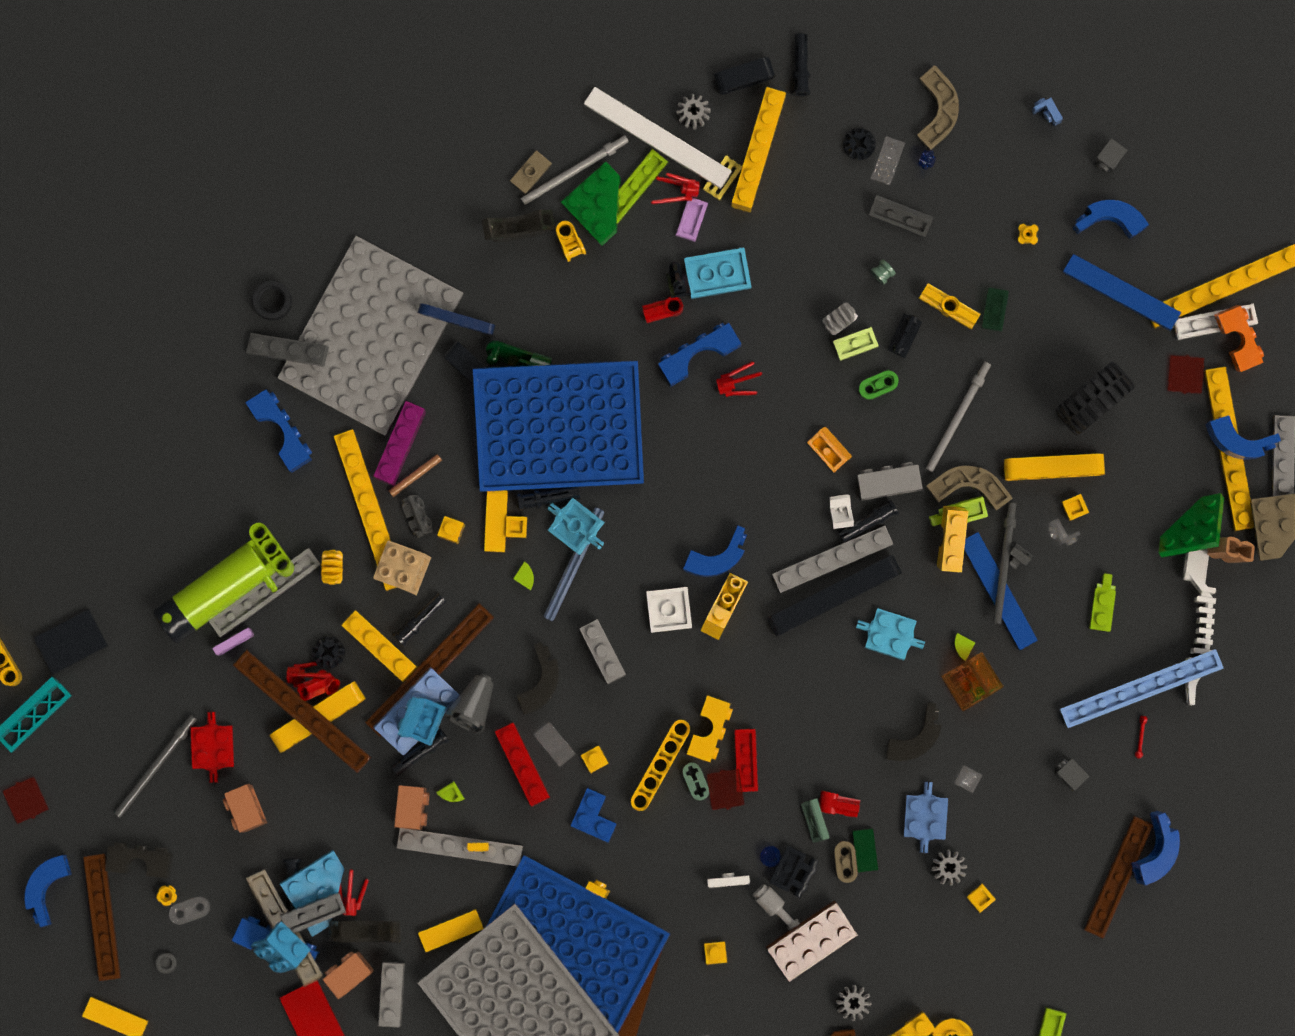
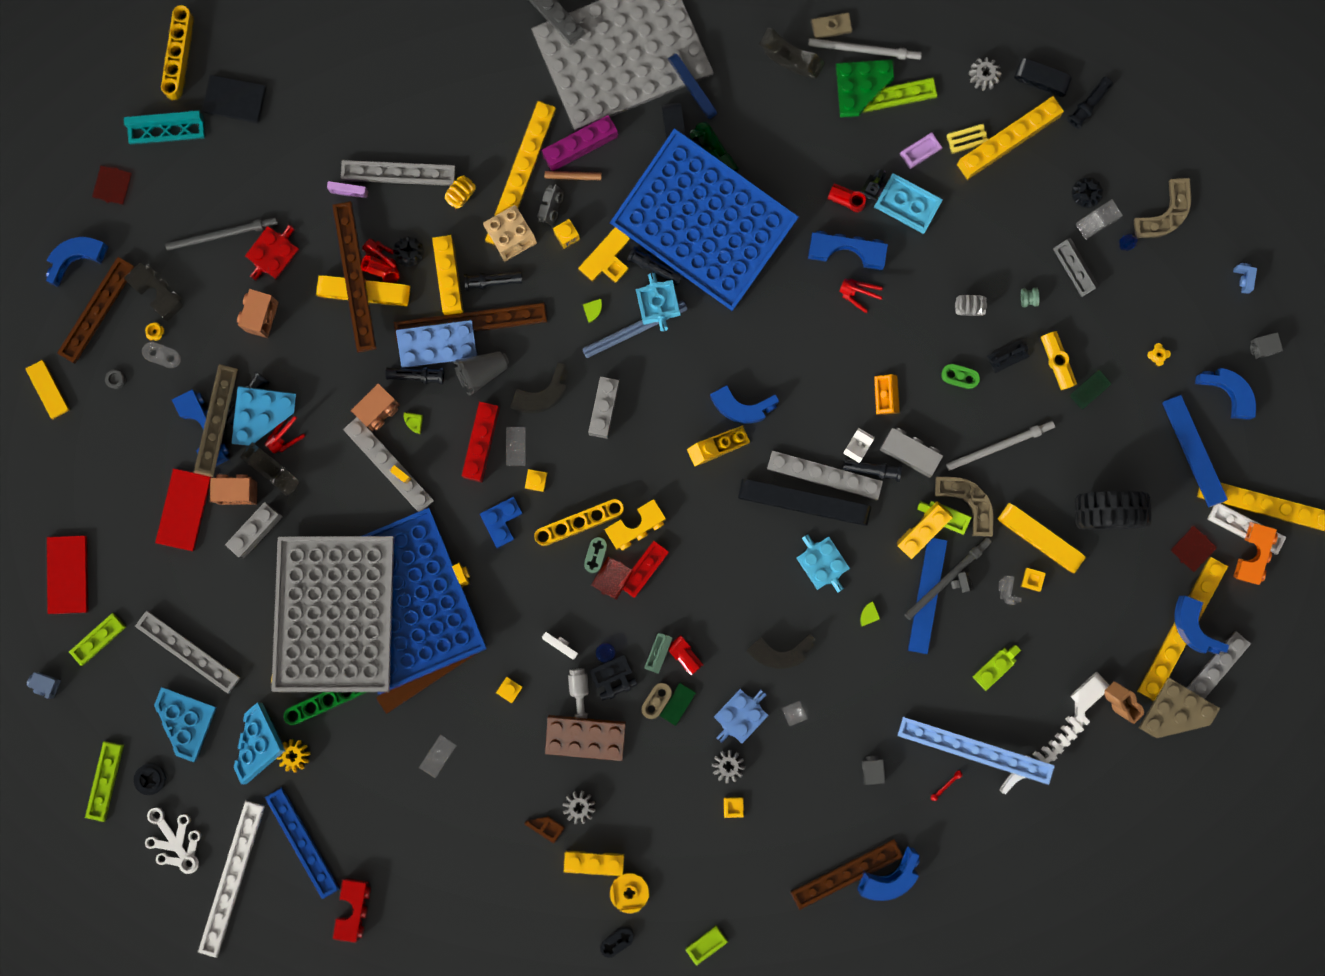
camera: 40 degrees right, 0 degrees up
(224, 585) = (373, 143): lime piece -> none
(265, 408) = (499, 89): blue arch -> none
(281, 949) = (200, 432): dark azure bracket -> none
(313, 913) = (243, 426): dark grey plate -> none
(421, 719) = (433, 349): dark azure bracket -> none
(451, 930) = (333, 519): yellow tile -> none
(570, 242) = (819, 98): yellow piece -> none
(657, 138) = (943, 72): white tile -> none
(669, 609) = (676, 416): white plate -> none
(689, 188) = (937, 125): red plant -> none
(855, 344) = (967, 333): yellowish green plate -> none
(972, 681) = (855, 645): clear orange slope -> none
(1195, 529) = (1110, 666): green plate -> none

